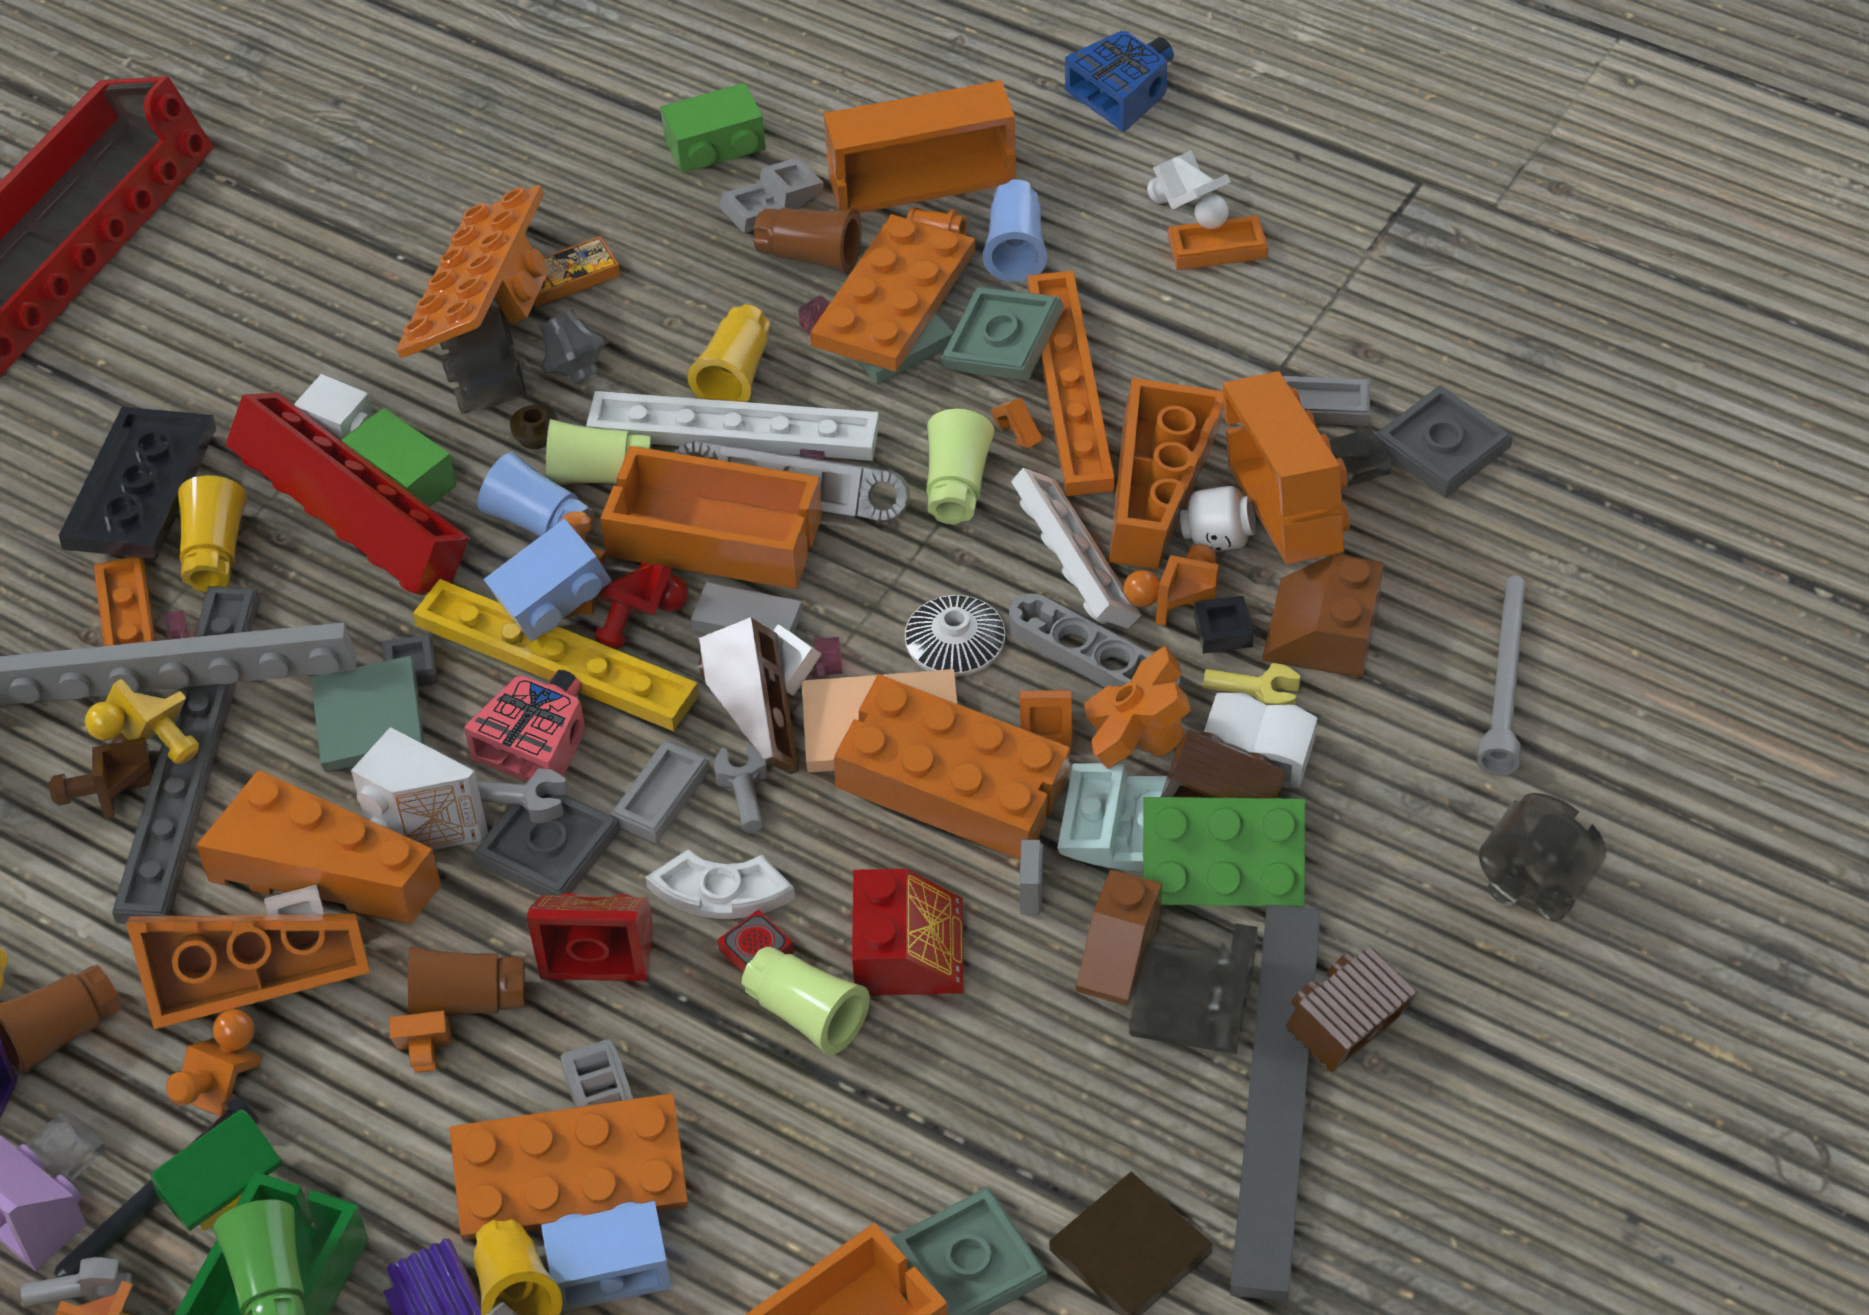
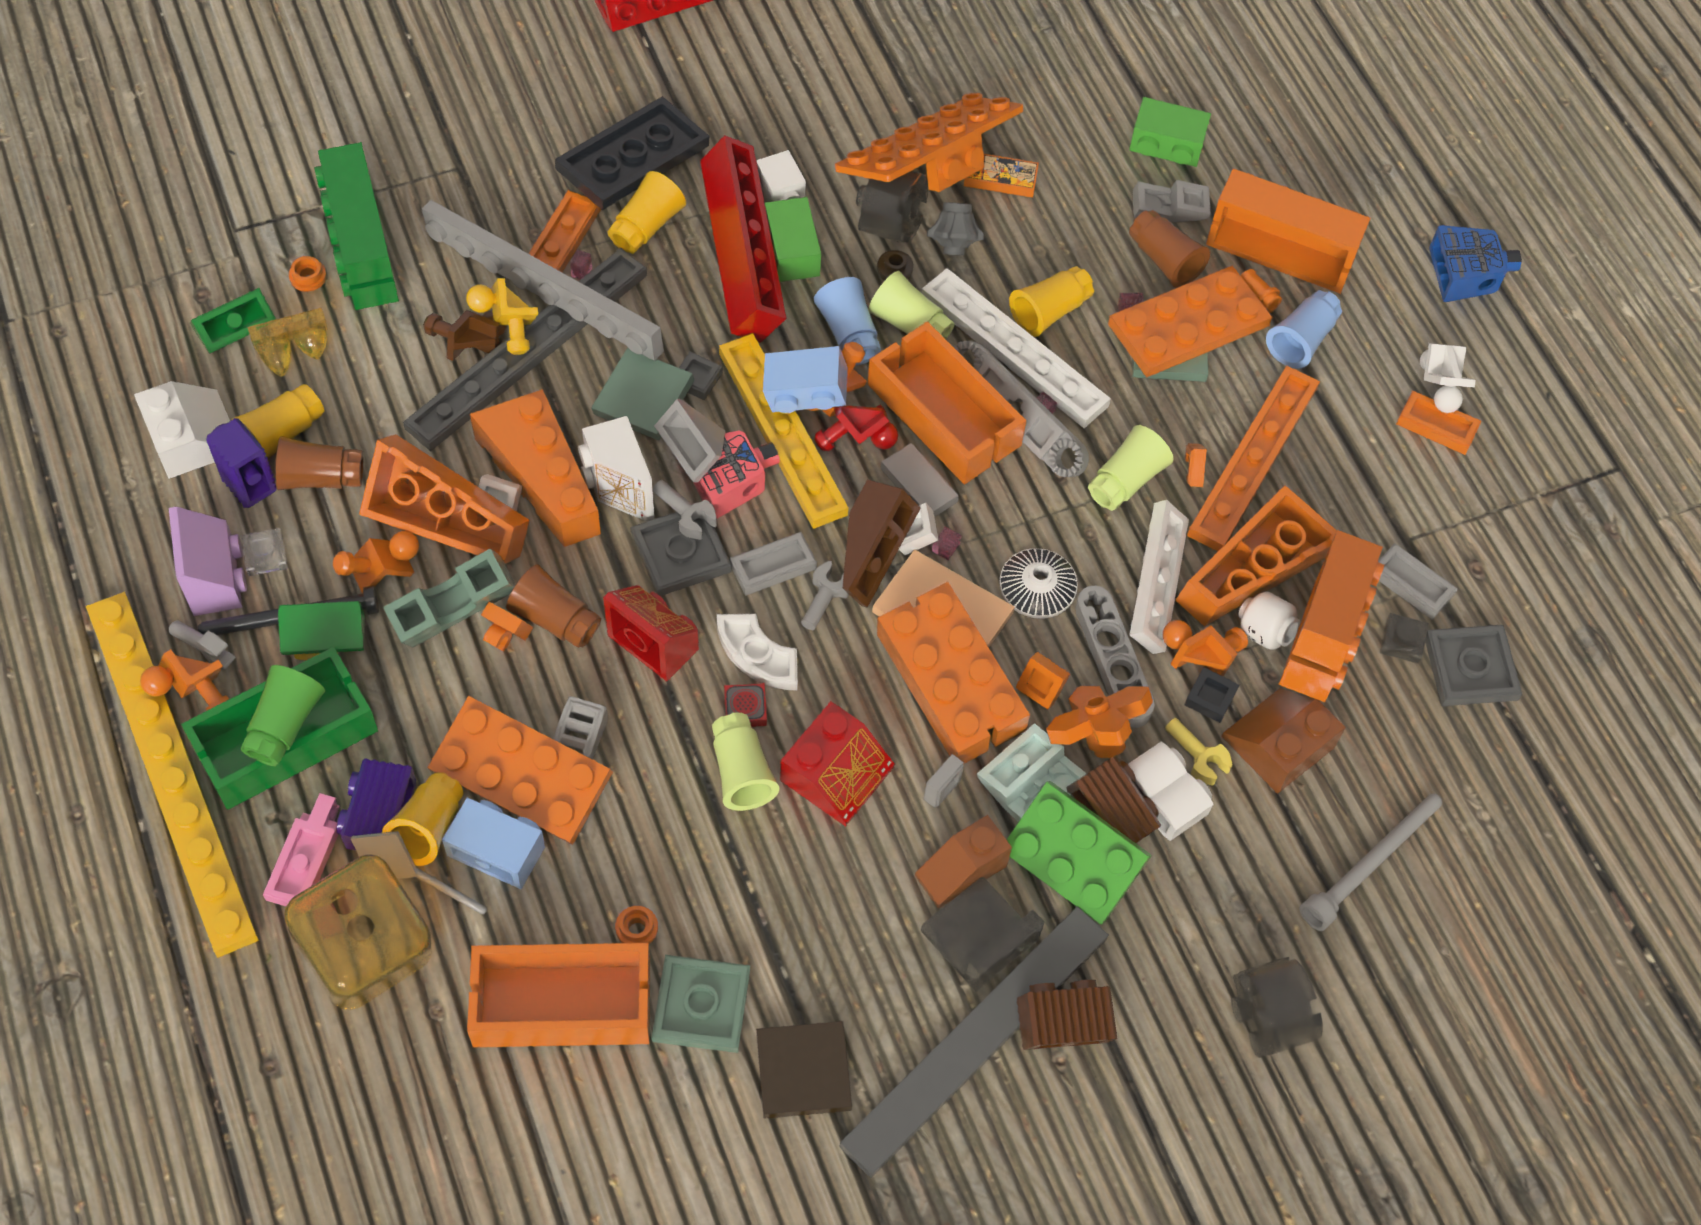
camera: 30 degrees right, 10 degrees up
(339, 1053) = (435, 609): none -> sand green arch
(474, 714) = (691, 438): none -> light grey slope
(827, 1220) = (634, 915): none -> orange plate
(1002, 333) = (1236, 395): sand green tile -> none

